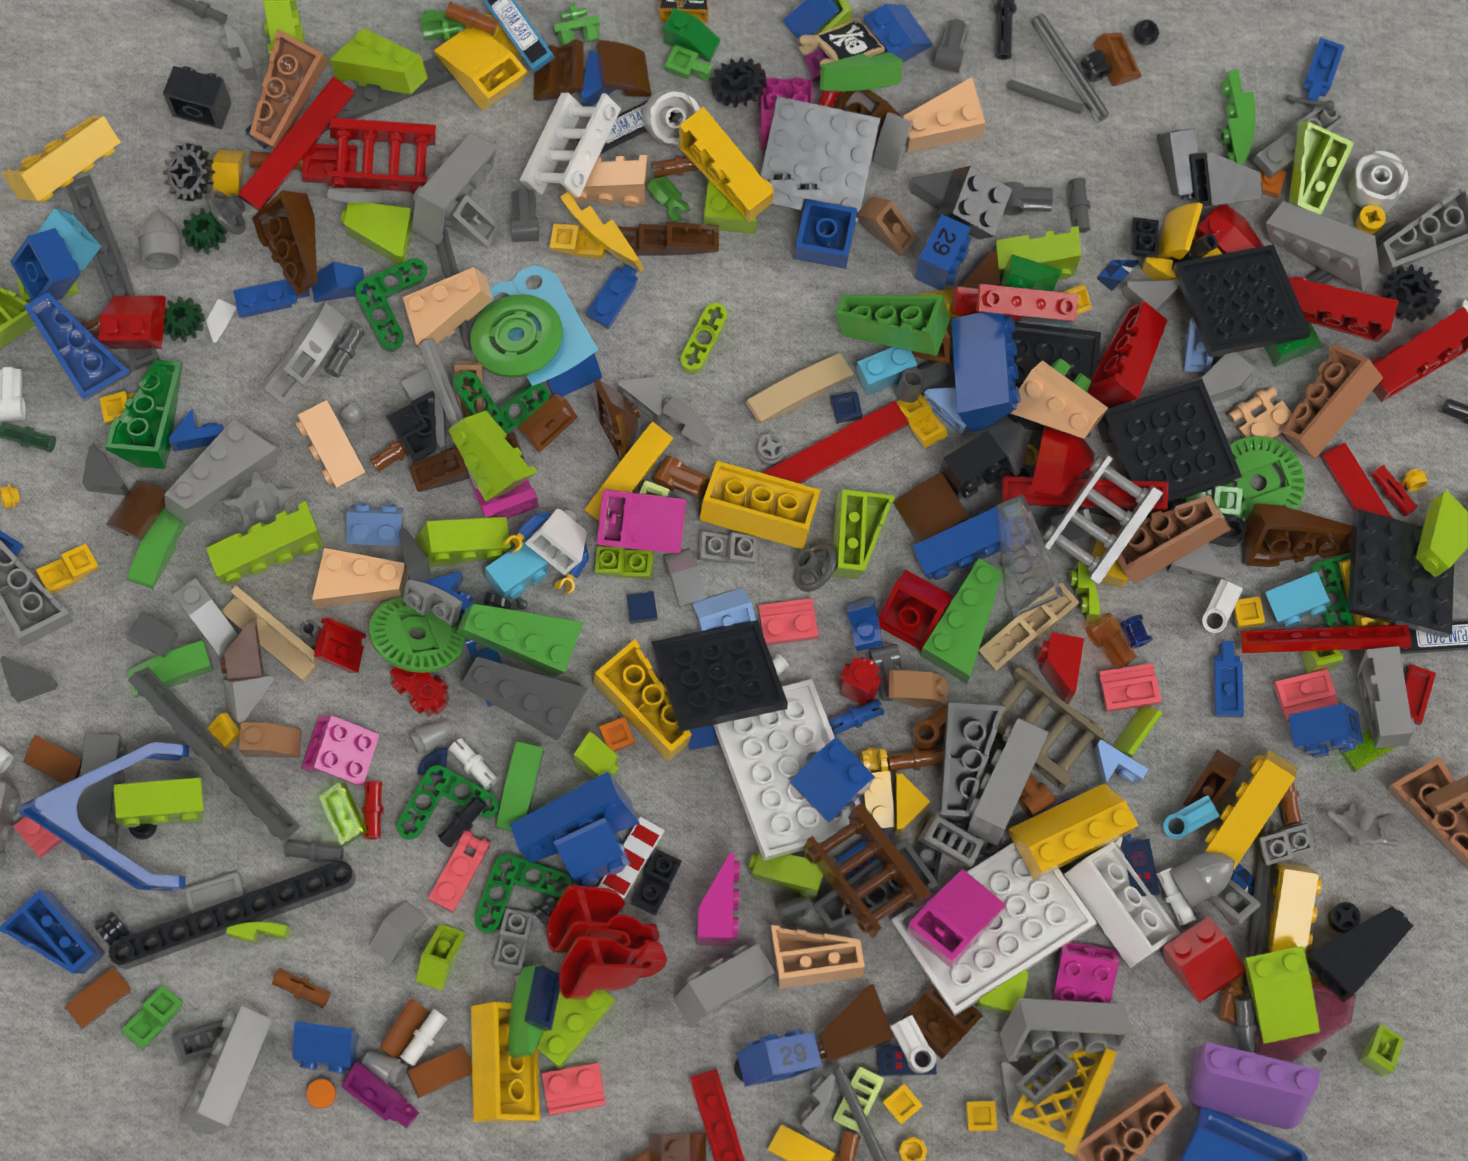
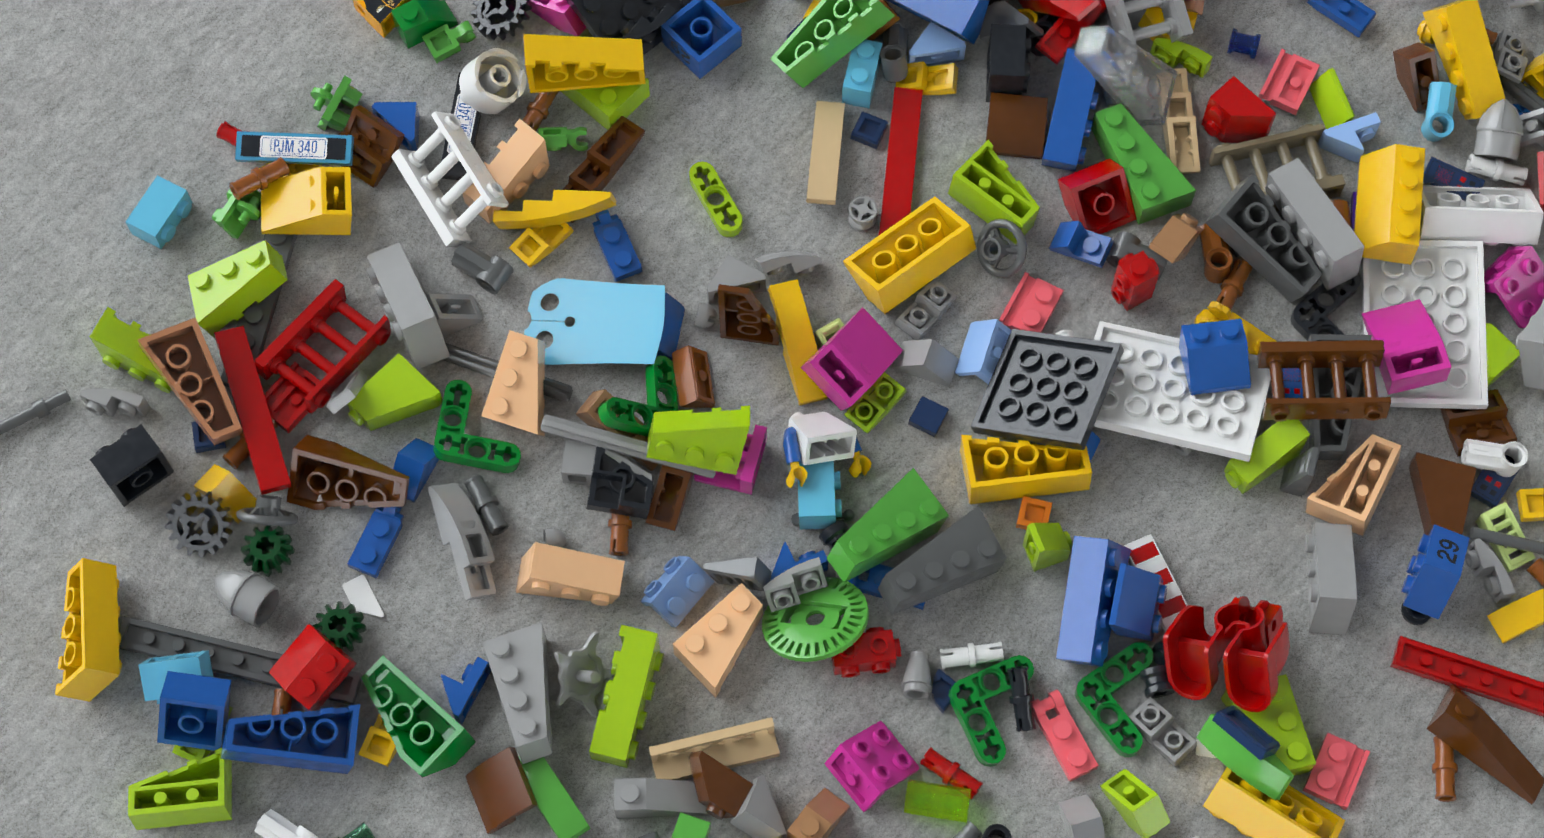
camera: 50 degrees left, 5 degrees down
(100, 475) = (438, 802): dark grey slope -> none
(307, 631) = (748, 709): dark grey pin -> none
(339, 645) = (775, 695): red plate -> none
(463, 540) = (756, 518): lime wedge -> none
(520, 356) = (620, 352): bright green piece -> none
(520, 784) = (1022, 627): bright green slope -> none
(623, 68) = (410, 91): reddish brown slope -> none
(656, 882) = (1192, 574): black slope -> none
(675, 475) = (828, 305): dark orange piece -> none
(715, 913) = (1260, 532): dark pink slope -> none
(856, 716) = (1159, 307): blue pin -> none
(908, 803) = (1269, 317): yellow slope -> none
(936, 843) = (1312, 316): light grey slope -> none
(1108, 635) = (1244, 67): clear orange piece -> none

